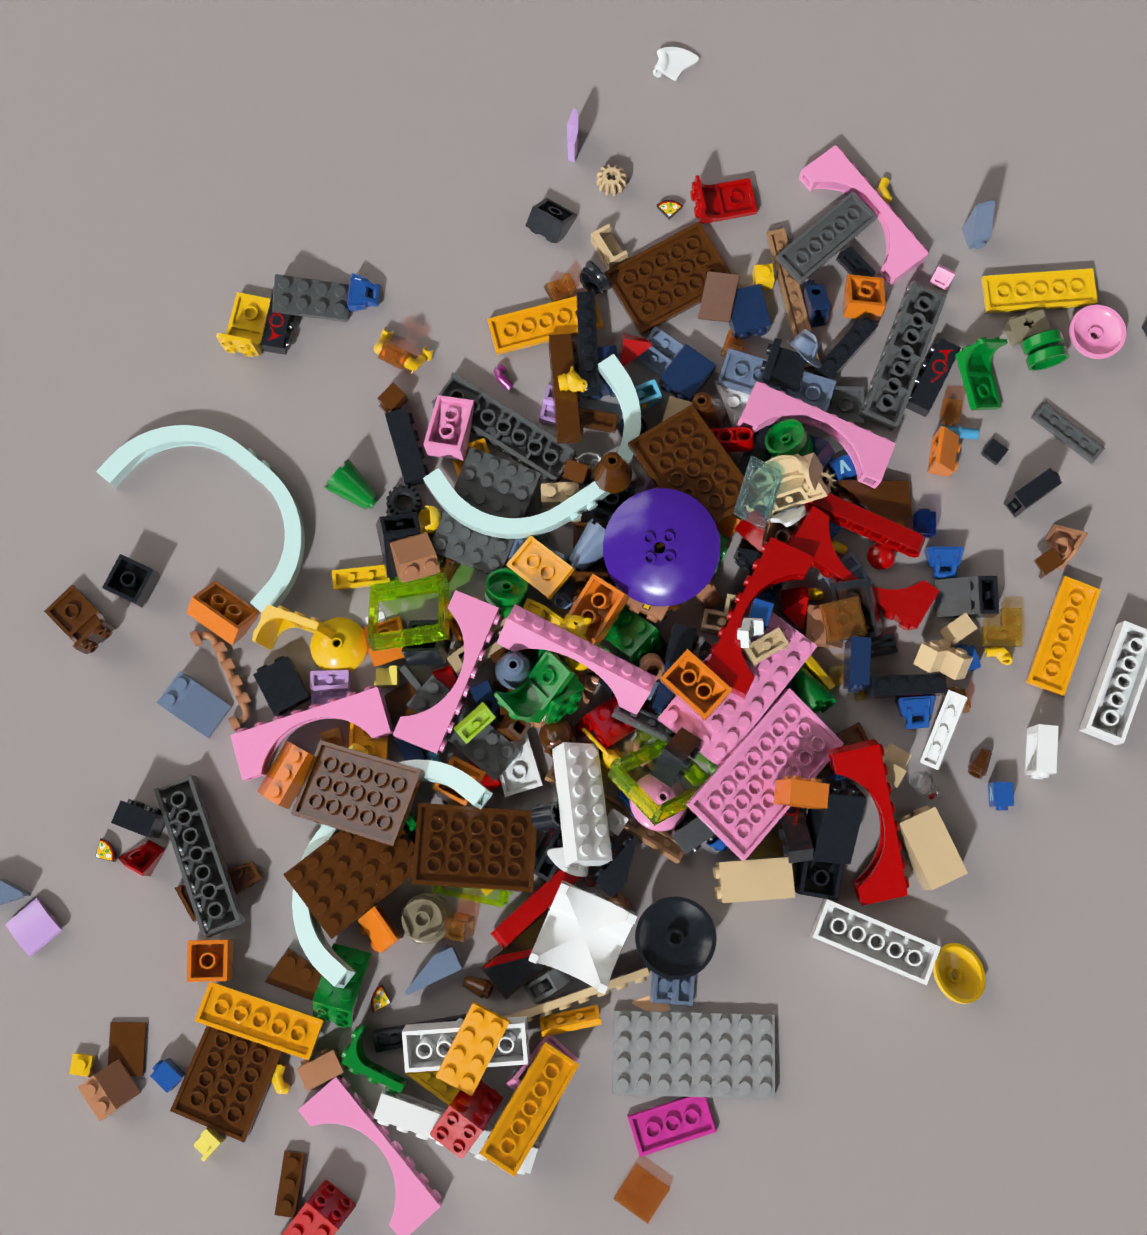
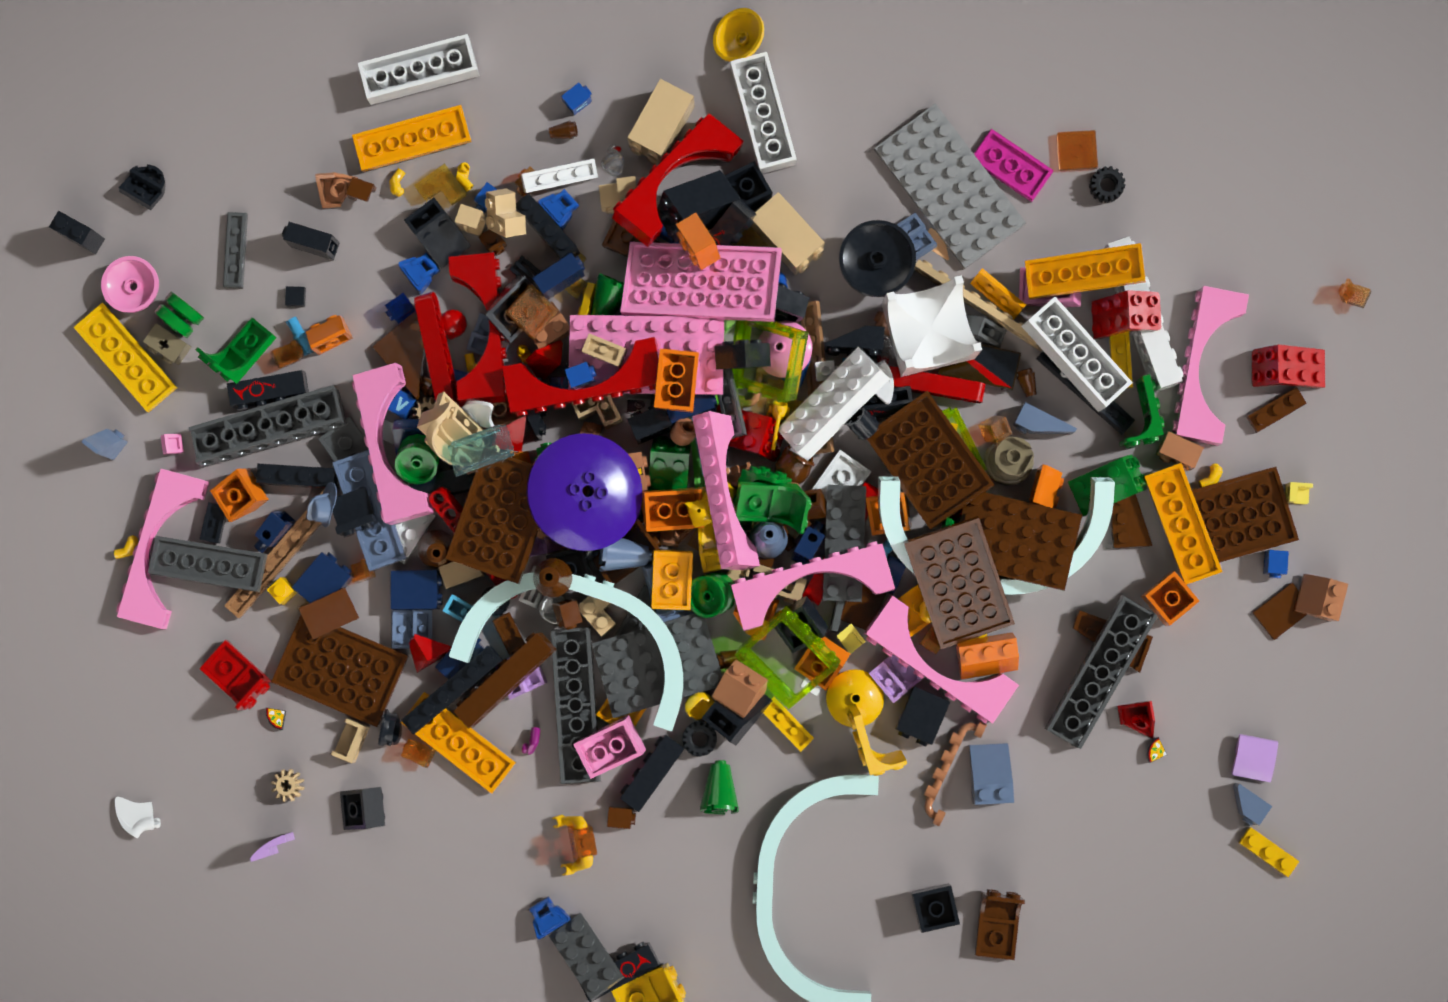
camera: 125 degrees left, 5 degrees up
(82, 1064) = (1320, 635): yellow plate -> none
(138, 818) = (1111, 741): black brick -> none
(222, 612) = (901, 812): orange slope -> none
(379, 999) = (1095, 448): tile -> none
(472, 1048) = (1076, 344): light orange plate -> none
(474, 722) = (835, 534): lime plate -> none
(565, 595) = (677, 544): sand blue cone -> none
(572, 382) = (497, 673): yellow animal -> none
(601, 1185) = (1103, 195): none -> black tyre
(750, 628) = (598, 372): white bracket -> none
(924, 635) = (493, 242): none -> reddish brown bracket
(1034, 595) = (394, 183): none -> yellow arm
(1041, 751) = (520, 90): white window -> none

